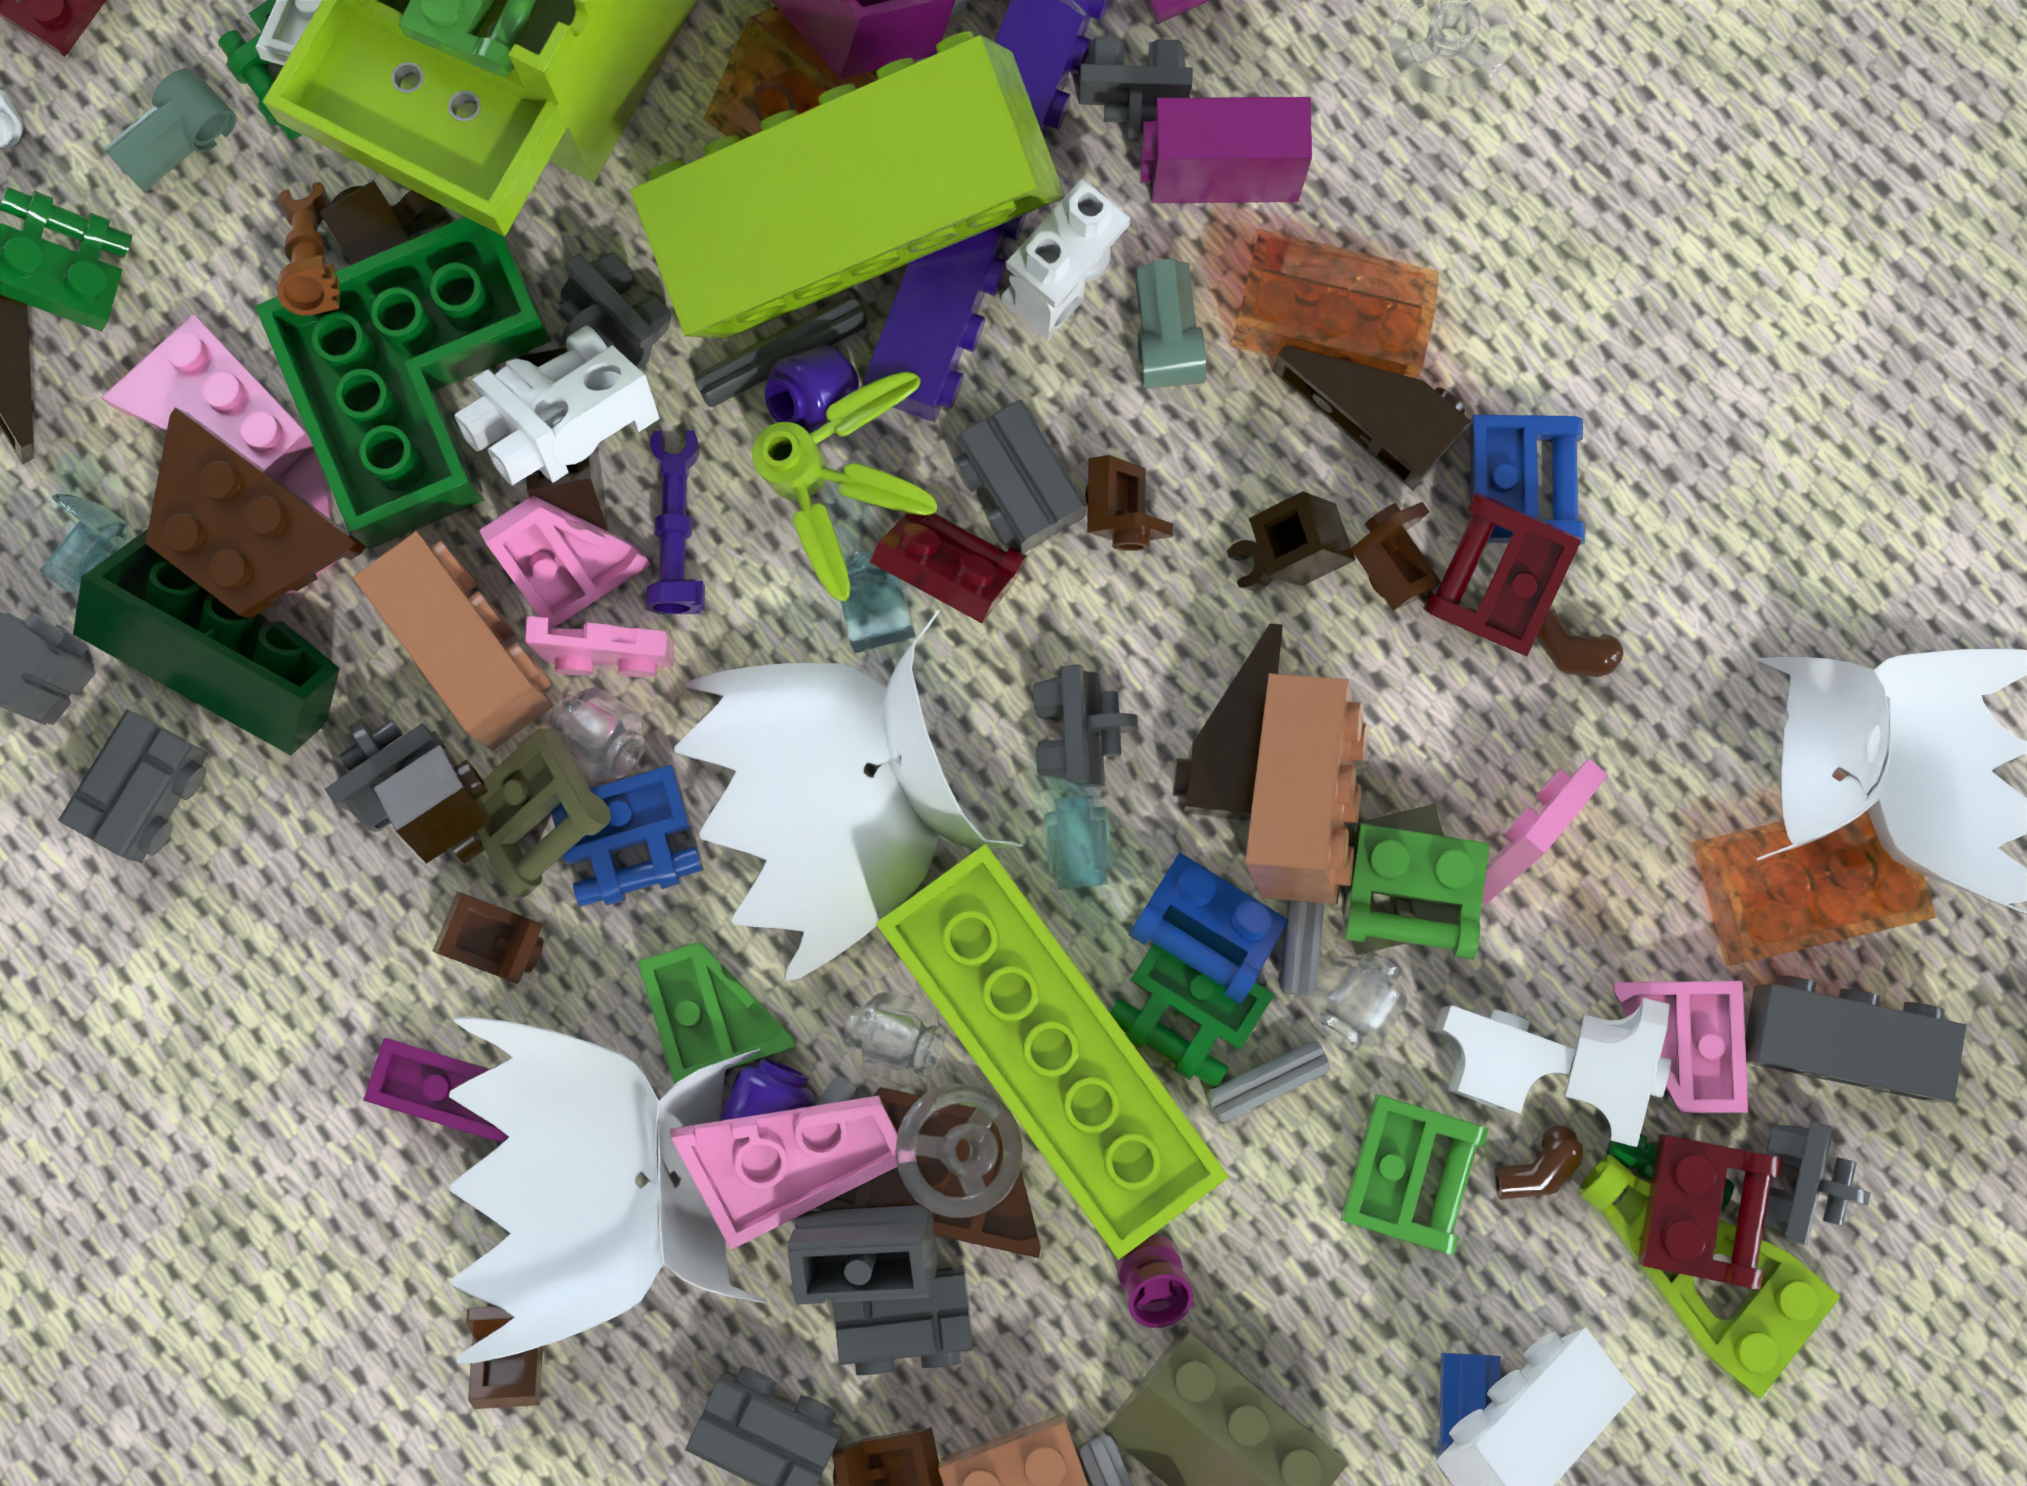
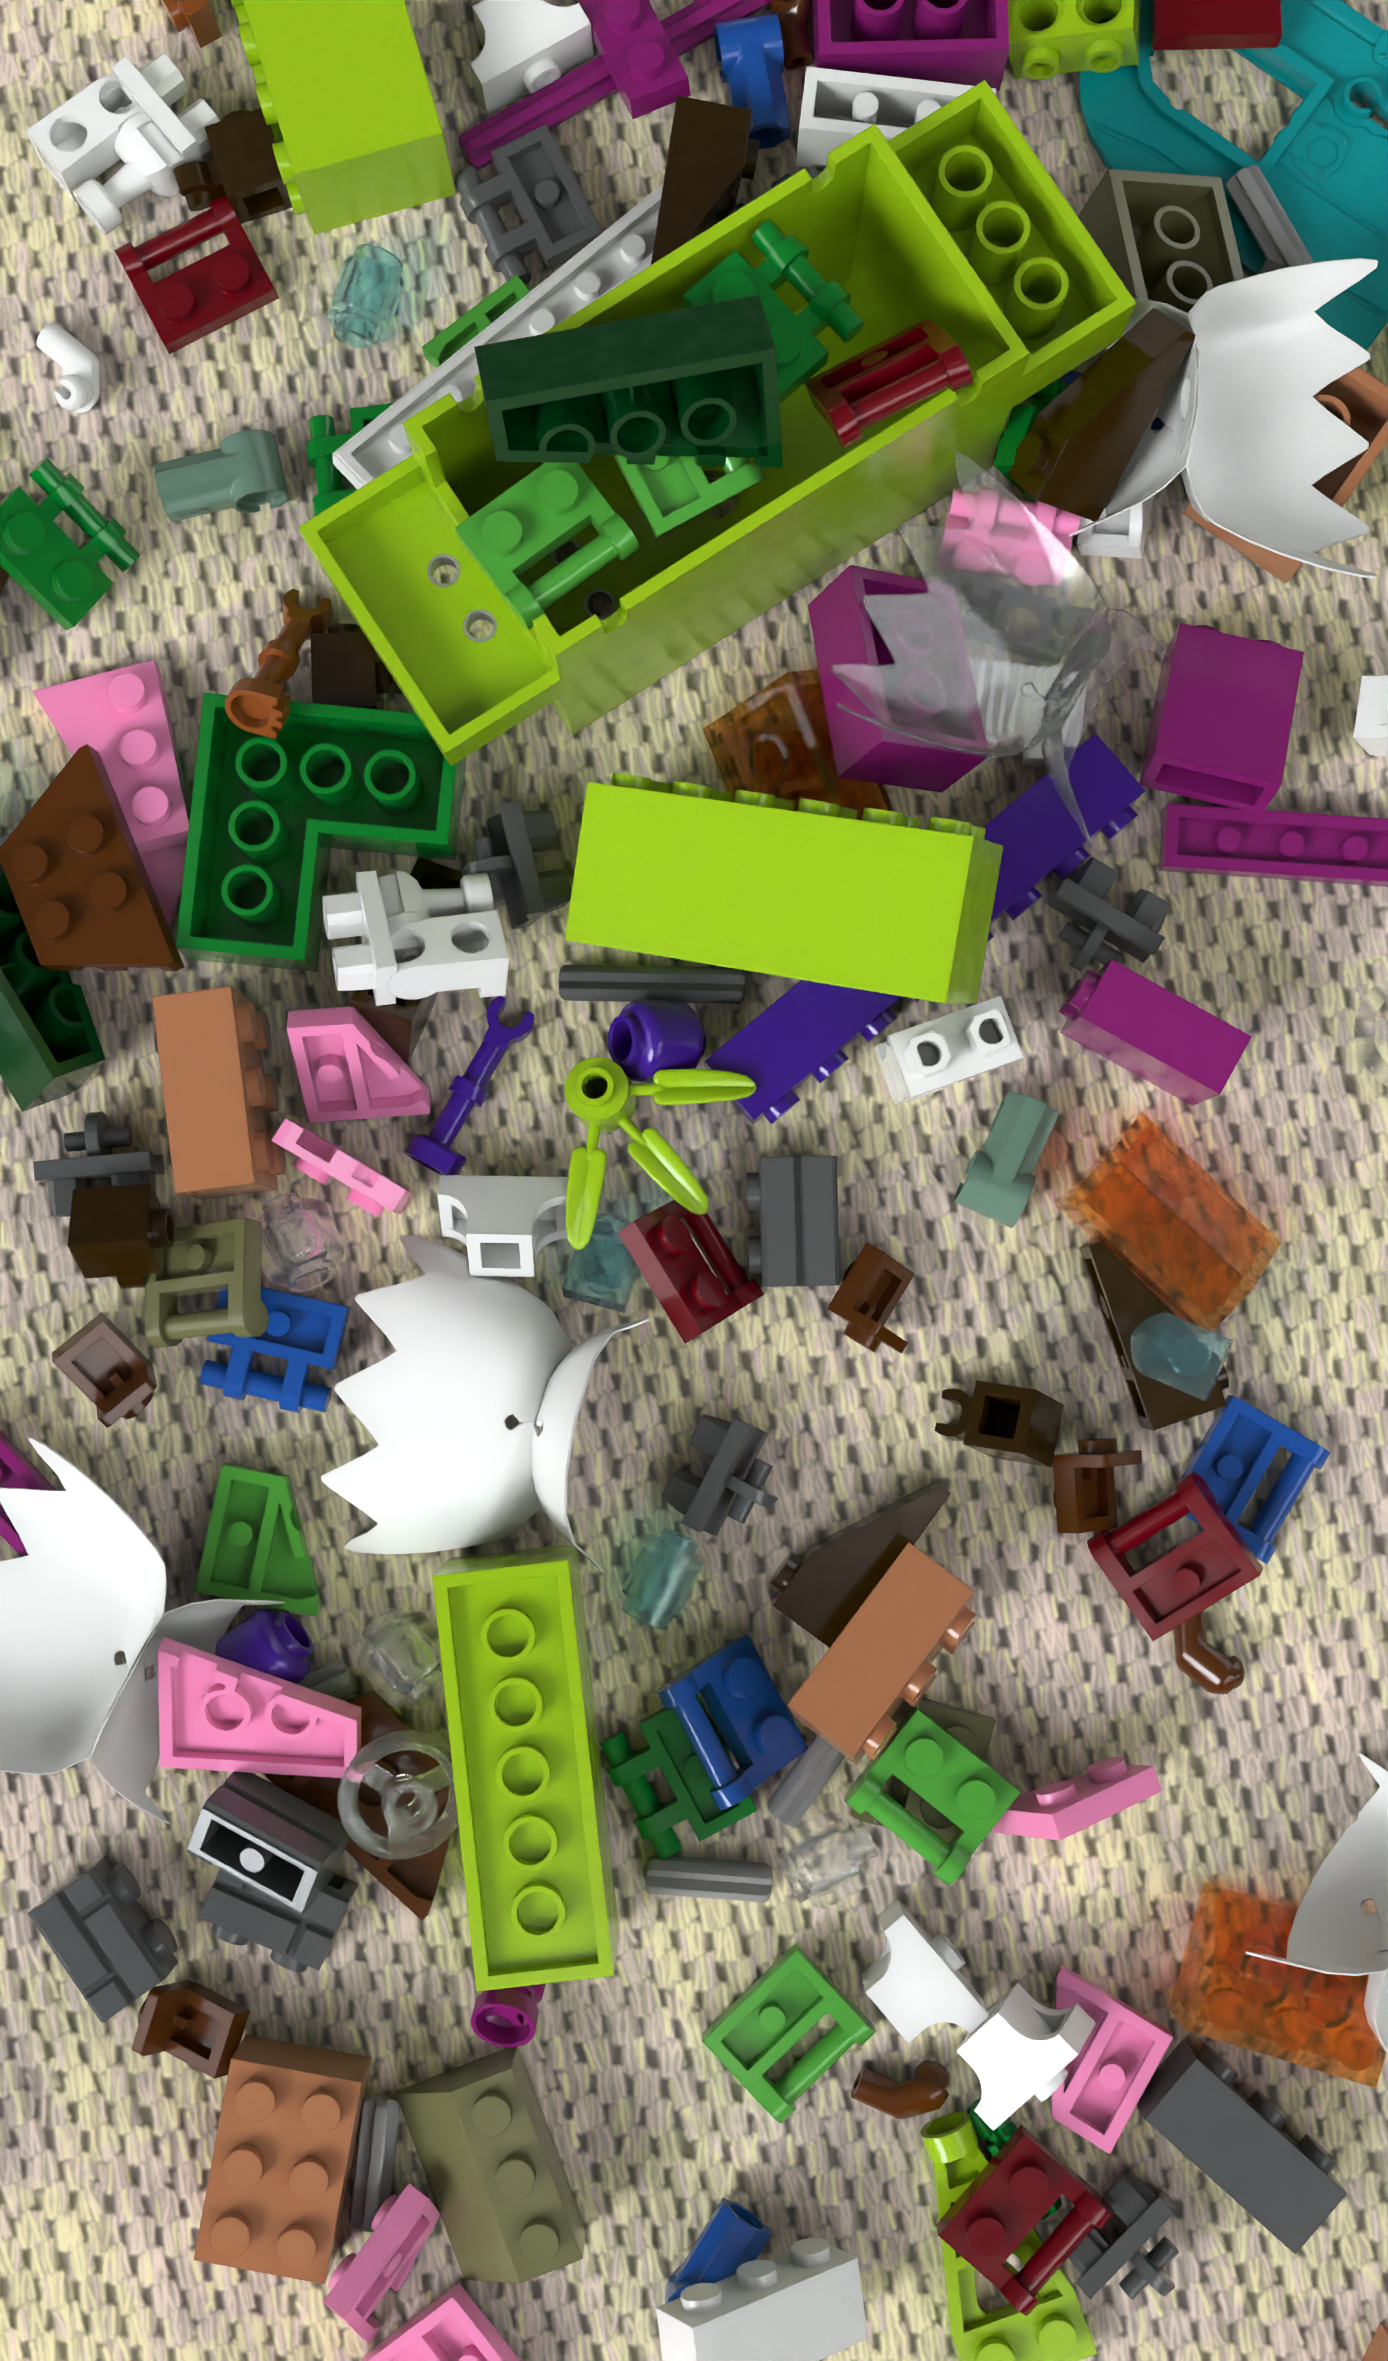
camera: 30 degrees right, 5 degrees up
(765, 613) = (503, 1219): none -> white brick
(1405, 394) = (1179, 1353): none -> clear light blue plate

